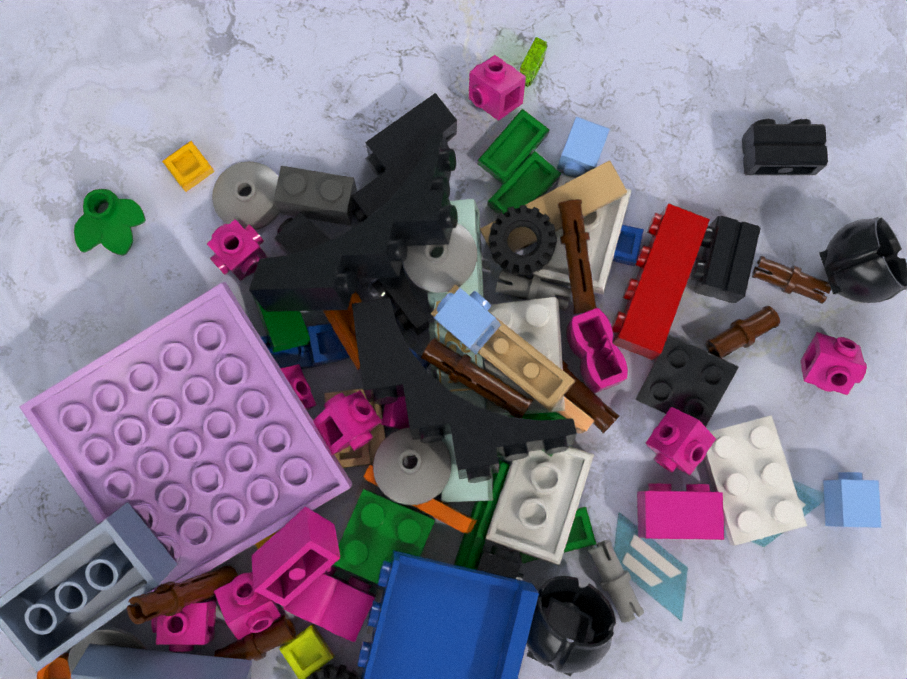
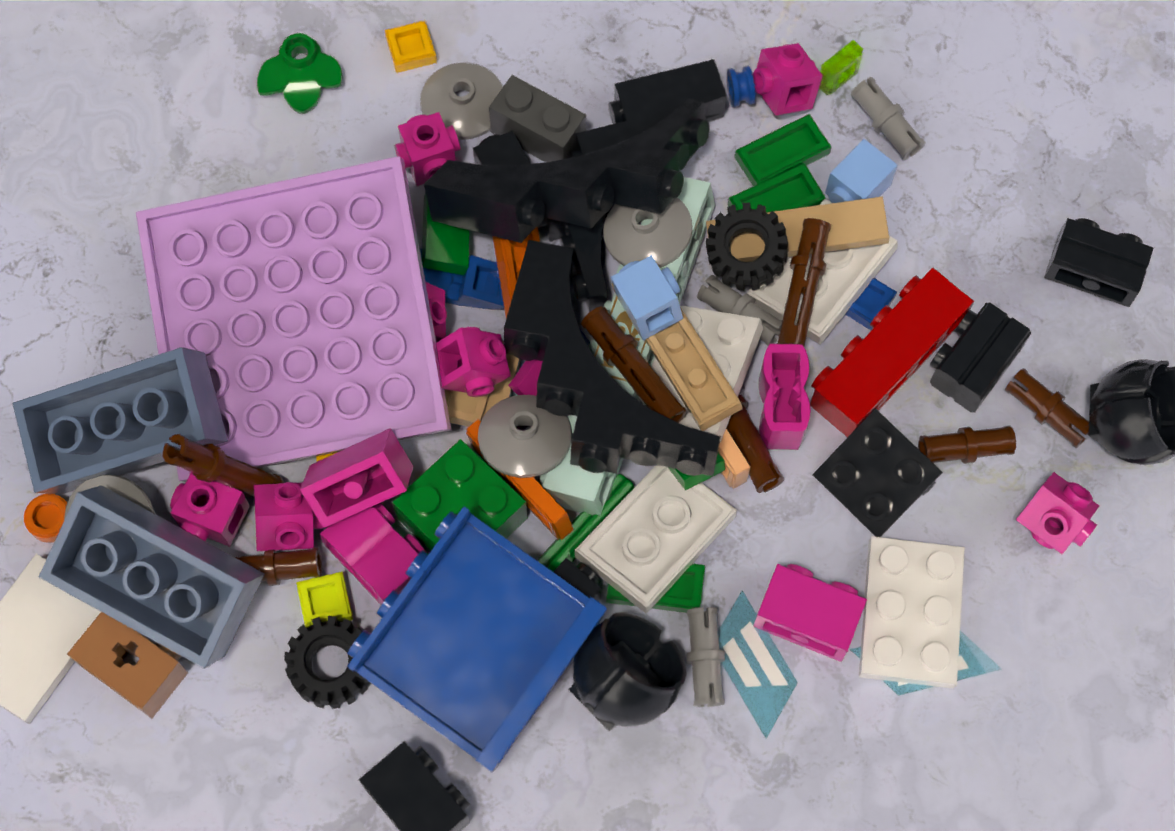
camera: 25 degrees right, 10 degrees down
(461, 105) = (740, 86): none -> blue bush
(583, 90) = (887, 118): none -> light grey pin
(680, 442) = (841, 530): dark pink brick -> none
(852, 501) = (1020, 676): light blue brick -> none

